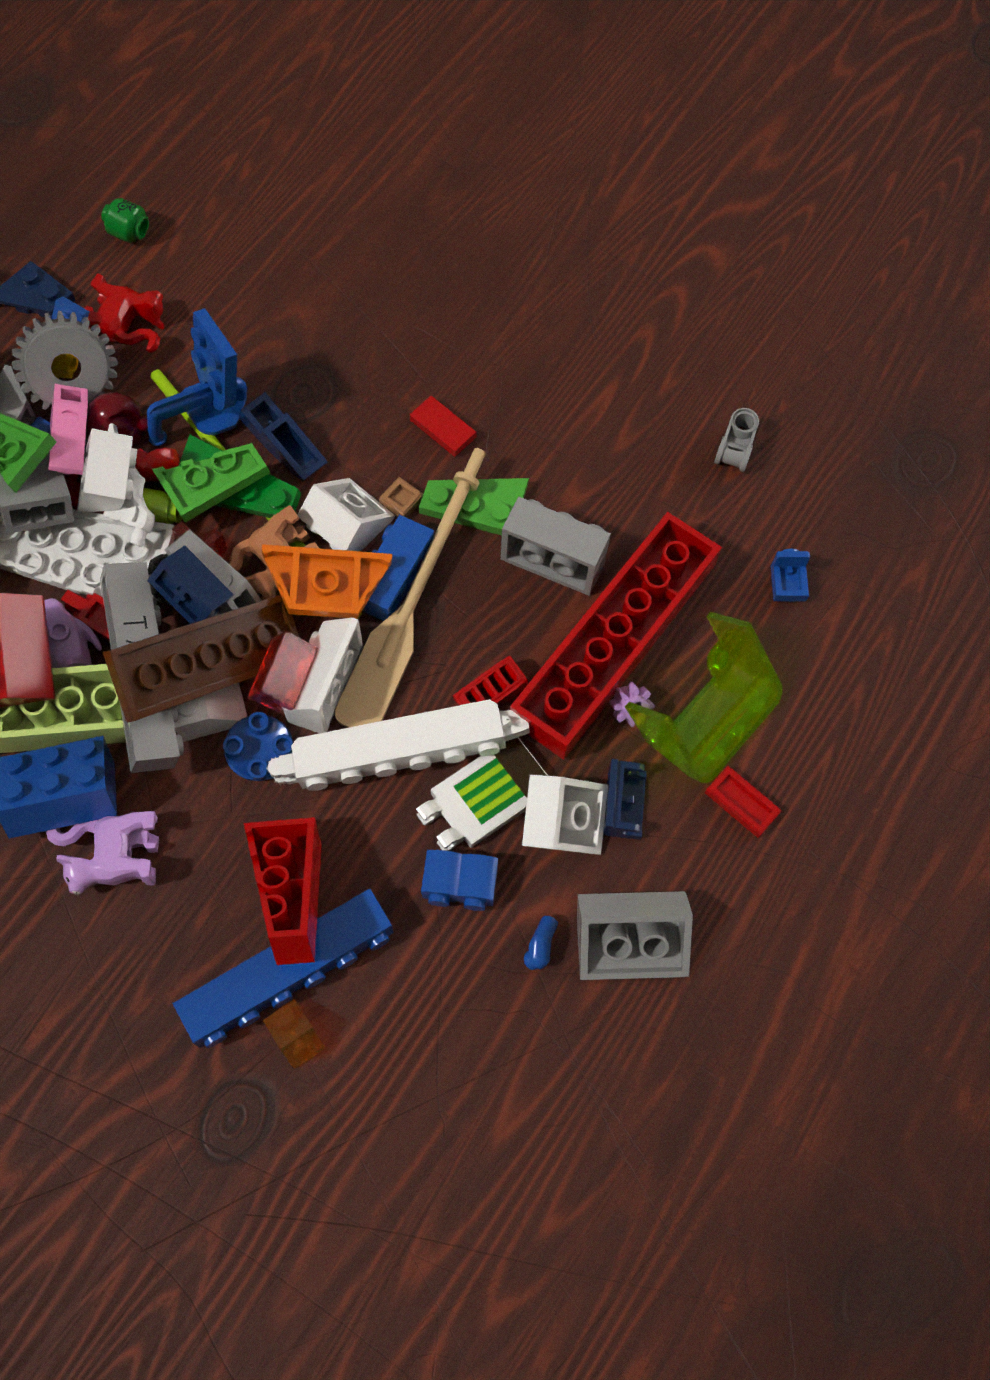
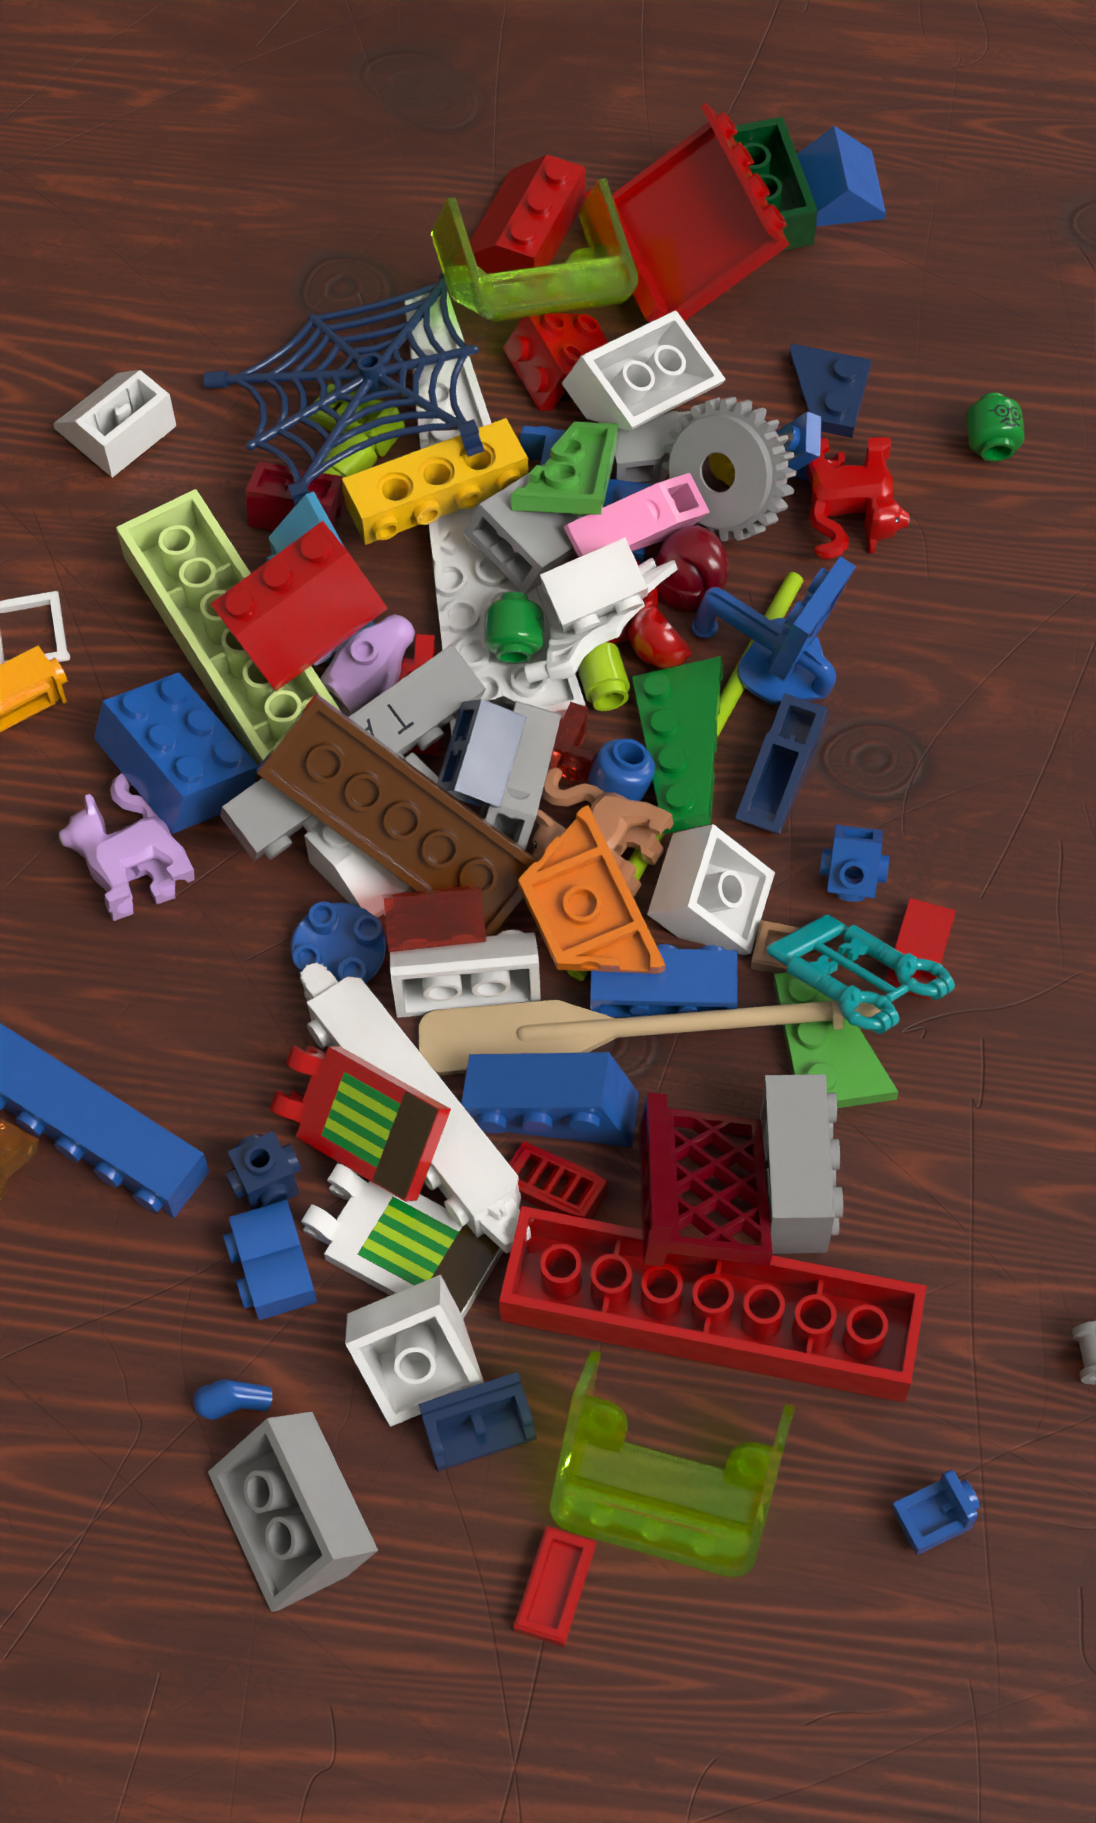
camera: 70 degrees right, 5 degrees down
(98, 536) = (514, 628): none -> green head
(207, 482) = (656, 707): bright green wing -> none
(236, 521) = (623, 768): none -> blue head
(288, 879) = (160, 1055): red wedge -> none
(374, 428) = (854, 863): none -> blue brick
(398, 776) = (364, 1118): none -> tile
(402, 869) = (263, 1170): none -> dark blue brick
(409, 476) = (859, 942): none -> teal piece
(435, 663) = (552, 1096): none -> blue wedge
(534, 620) = (665, 1179): none -> dark red fence
(629, 694) = (621, 1370): lavender gear -> none

